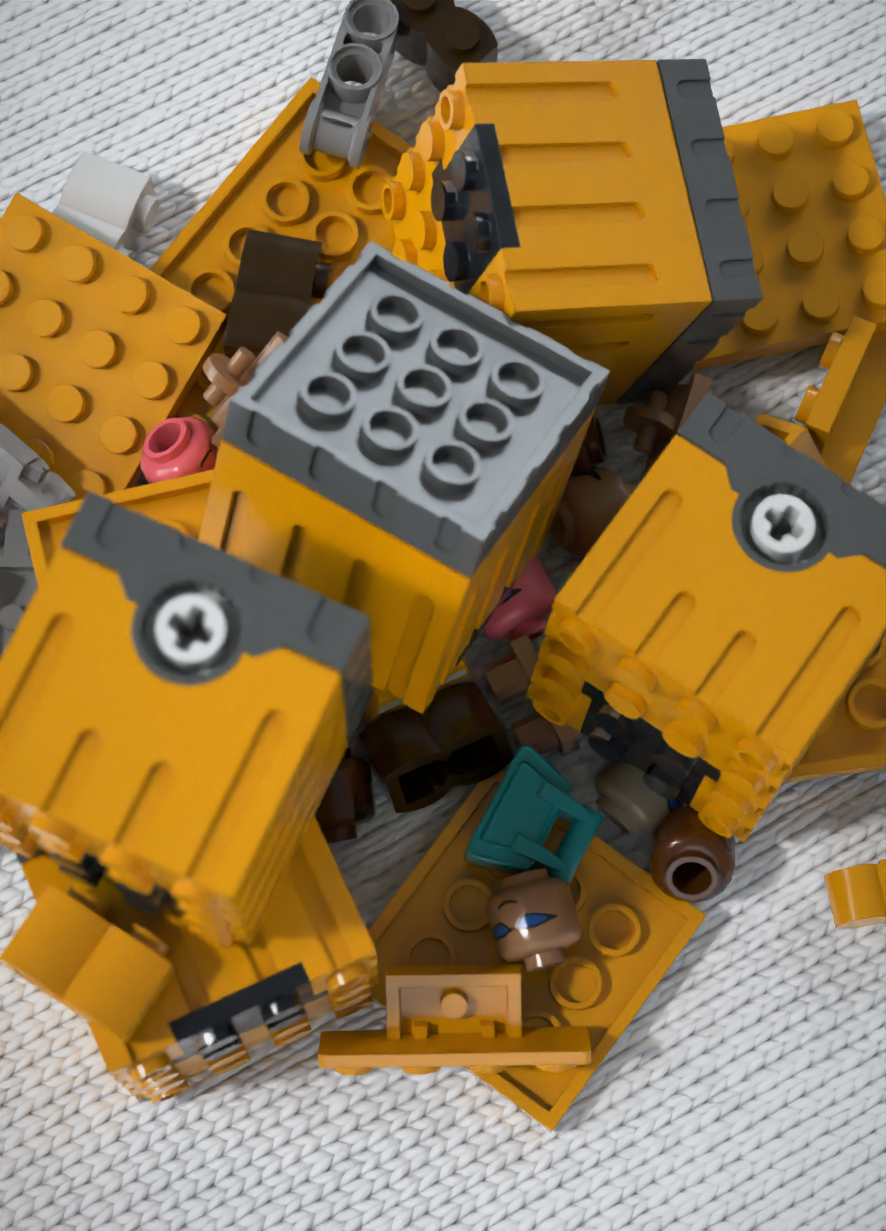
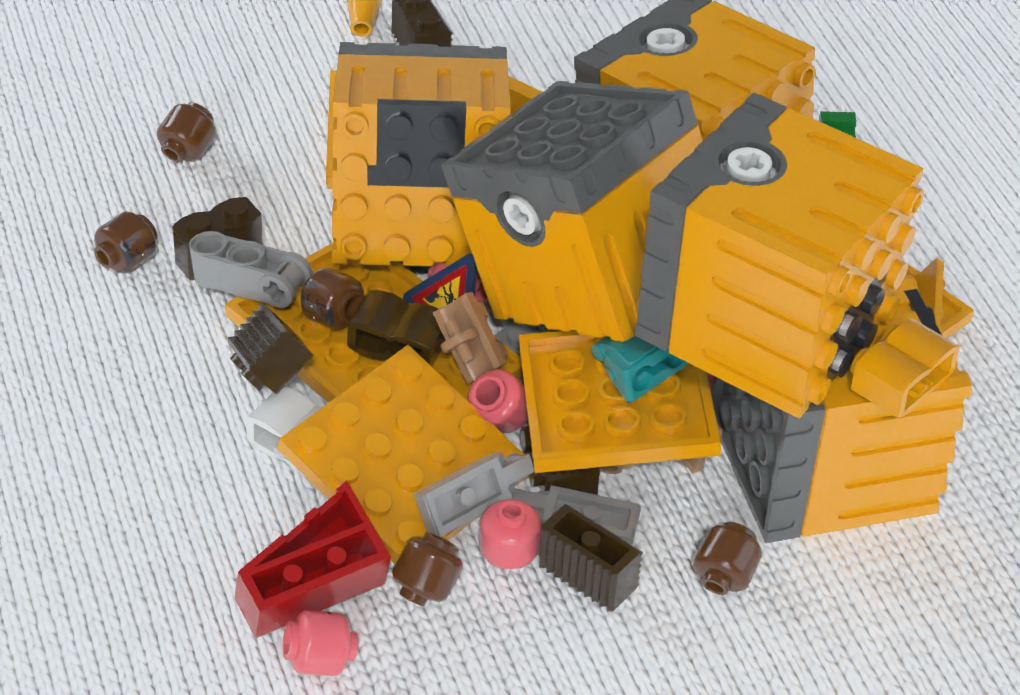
camera: 80 degrees left, 30 degrees down
(191, 143) = (268, 350): none -> dark brown brick
(317, 201) = (331, 298): none -> reddish brown head

